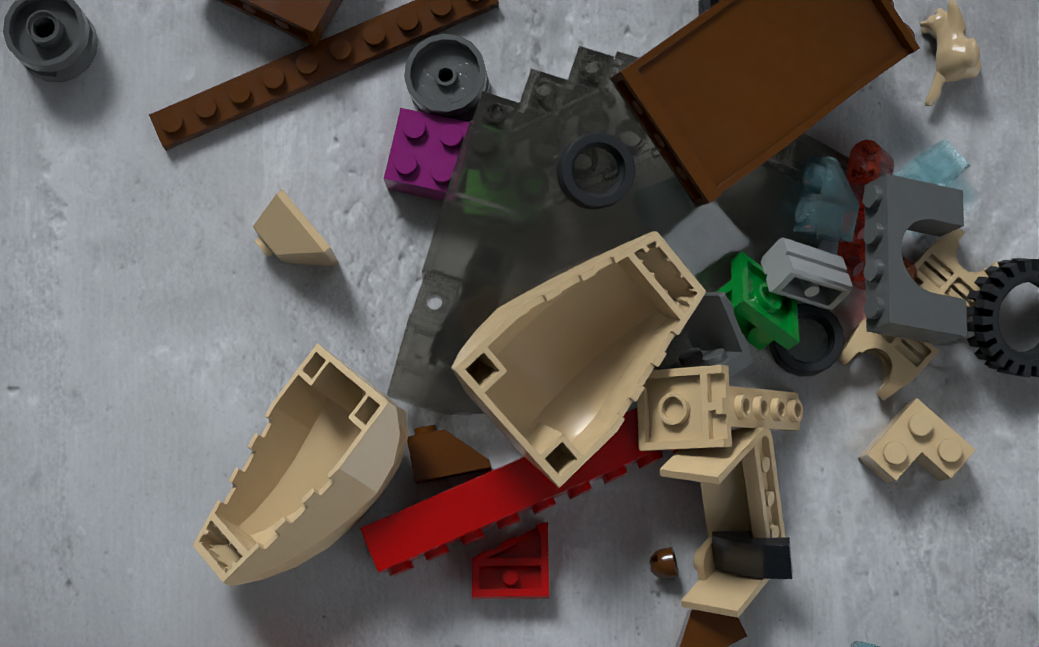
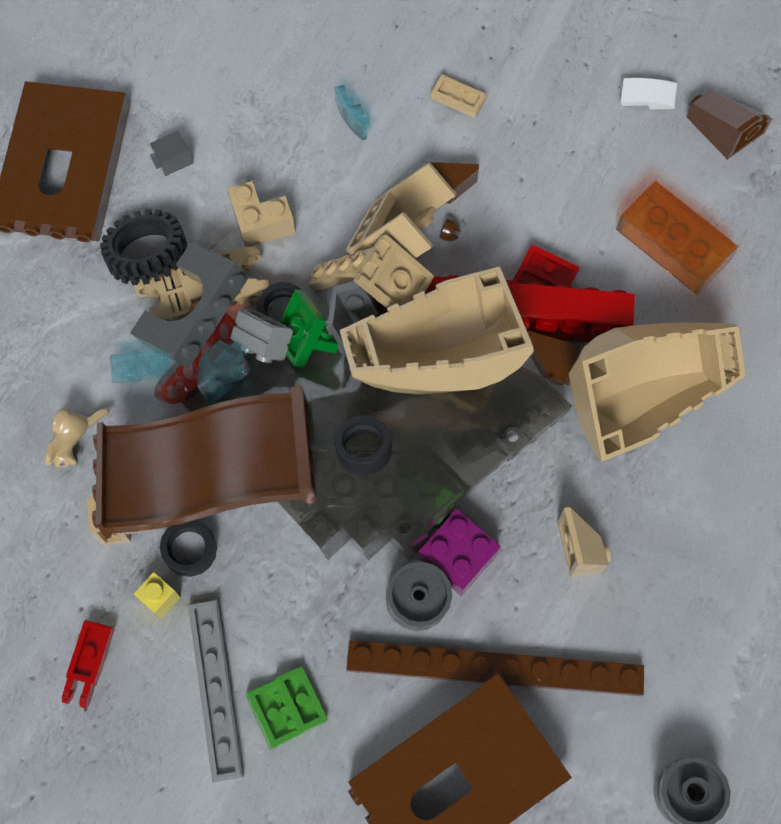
camera: 150 degrees left, 10 degrees down
(752, 557) = (391, 192): black slope -> none

